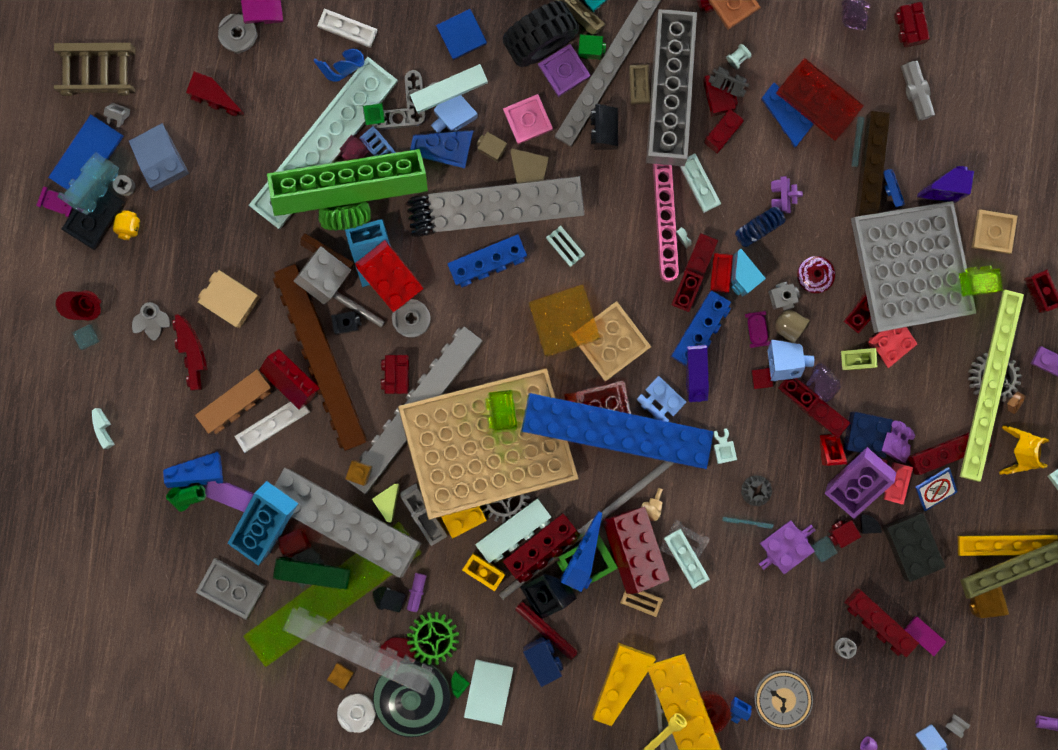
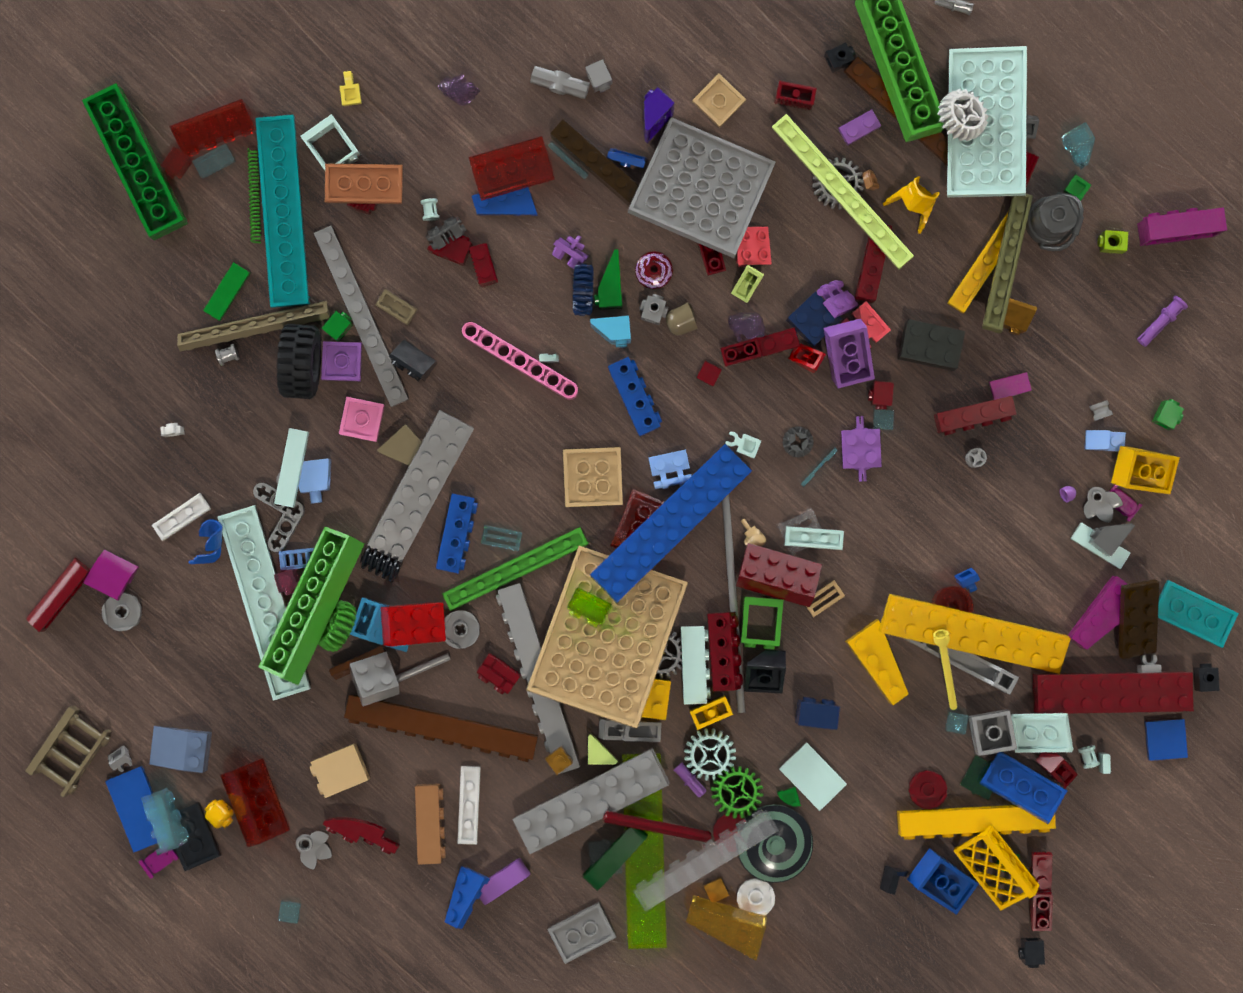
camera: 60 degrees left, 0 degrees up
(78, 305) = (259, 899): dark red piece -> none
(100, 422) = (370, 948): light aqua slope -> none
(127, 188) = (187, 791): light grey wheel -> none
(155, 248) = (255, 802): none -> clear red slope
(183, 498) = (480, 921): green piece -> none
(207, 90) = (152, 669): dark red slope -> none
(262, 523) = (546, 868): dark azure brick -> none
(289, 379) = (441, 765): dark red brick -> none
(294, 543) = (580, 854): clear red brick -> none
(319, 707) = (728, 924): none -> clear yellow wedge
(338, 326) = (427, 694): black brick -> none
(359, 591) = (656, 826): none -> dark red axle
(373, 114) = (269, 544): green plate -> none
(388, 599) = (679, 807): black tile -> none
(440, 593) = (716, 747): none -> light aqua gear
(444, 147) = (337, 504): blue wing -> none
(461, 34) = (252, 425): blue tile -> none
(490, 328) = (515, 569): none -> bright green tile
(491, 146) = (363, 465): dark tan brick -> none
(502, 285) = (486, 534): none -> clear light blue tile
(546, 630) = (794, 694): dark red axle -> none
(560, 252) = (485, 453): light aqua tile -> none
(564, 320) = (549, 503): clear yellow plate -> none
(580, 566) = (759, 627): blue wedge -> none
(671, 87) = (418, 283): light grey brick -> none
(694, 272) = (583, 369): dark red slope -> none
(697, 373) = (668, 425): dark purple slope -> none
(700, 184) = (512, 314): light aqua tile -> none
(721, 273) = (599, 347): red tile -> none
(757, 329) = (666, 349): magenta piece -> none
(776, 248) = (609, 290): none -> green slope
(783, 699) = (983, 537): tile -> none
(787, 360) = (708, 343): light blue torso -> none
(869, 525) = (889, 368): black tile -> none
(912, 24) = (502, 49): dark red brick -> none
(936, 489) = (896, 294): piece -> none
(945, 119) = (599, 76): none -> light grey brick
(980, 281) = (752, 141): clear neon green brick -> none

